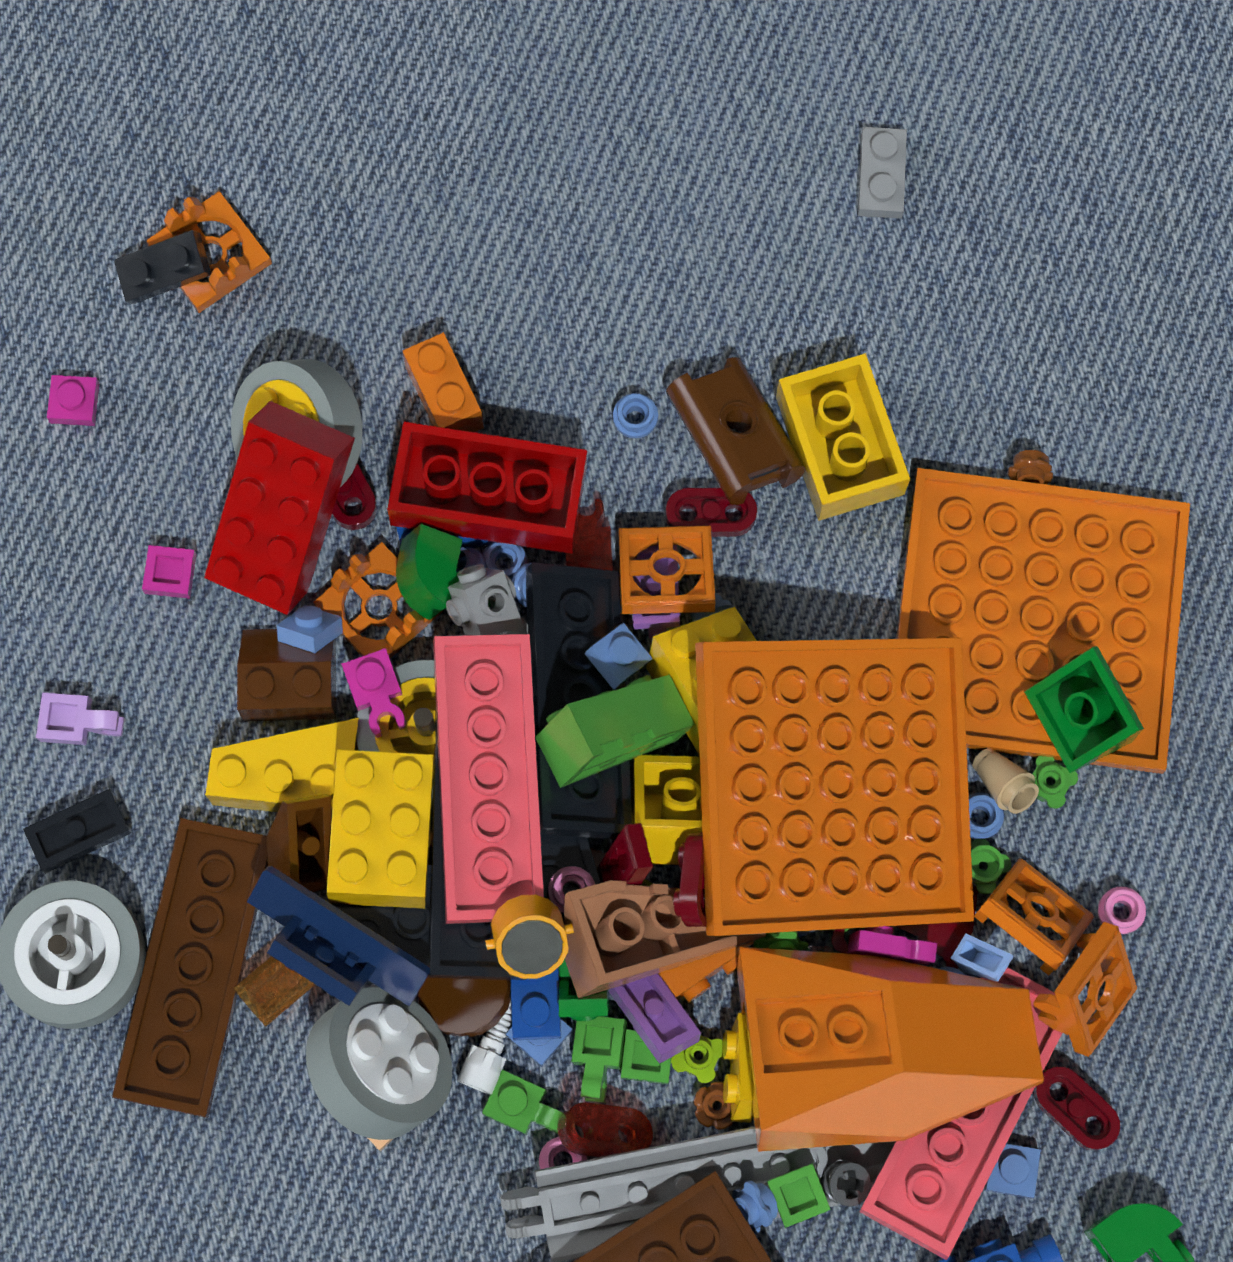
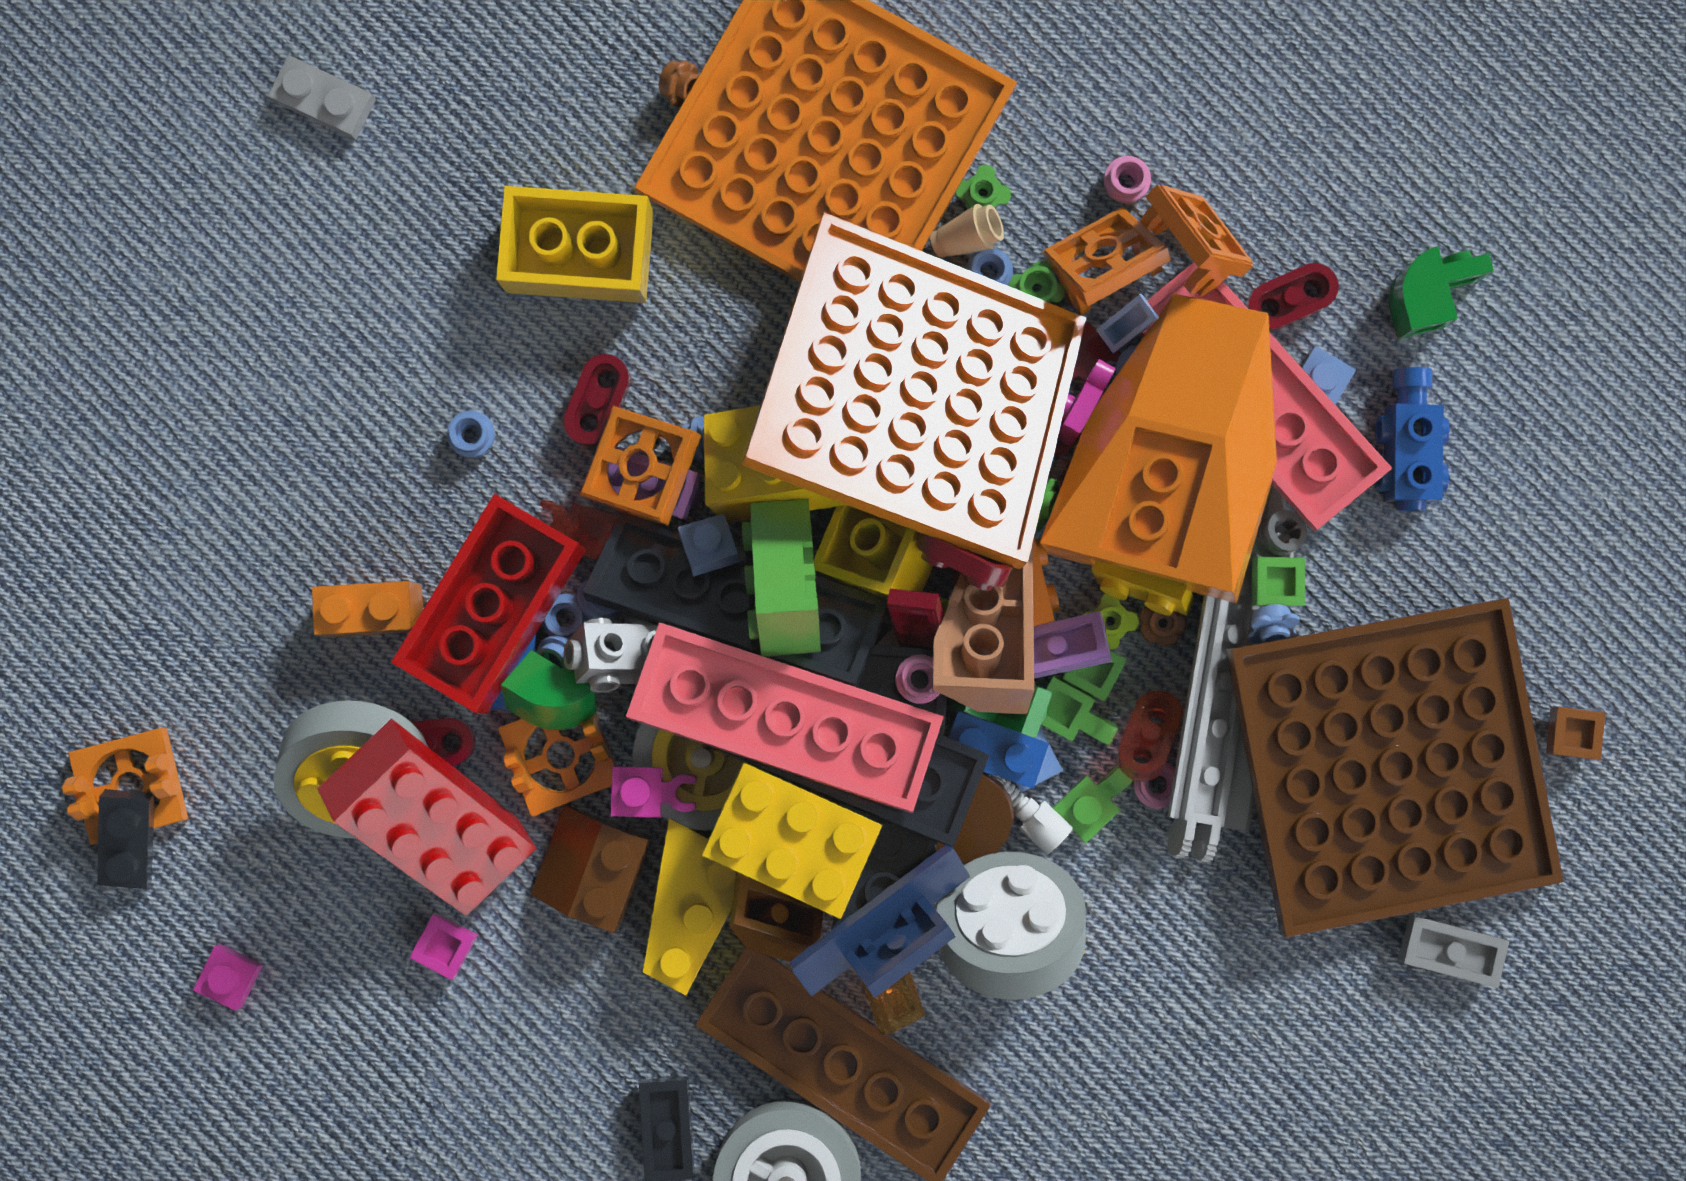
camera: 65 degrees left, 10 degrees up
(70, 718) = (553, 1094): lavender plate -> none
(309, 628) = (558, 831): medium blue plate -> none
(529, 936) = (959, 738): piece -> none
(736, 459) = (497, 333): reddish brown piece -> none
(1084, 710) = (936, 128): green slope -> none

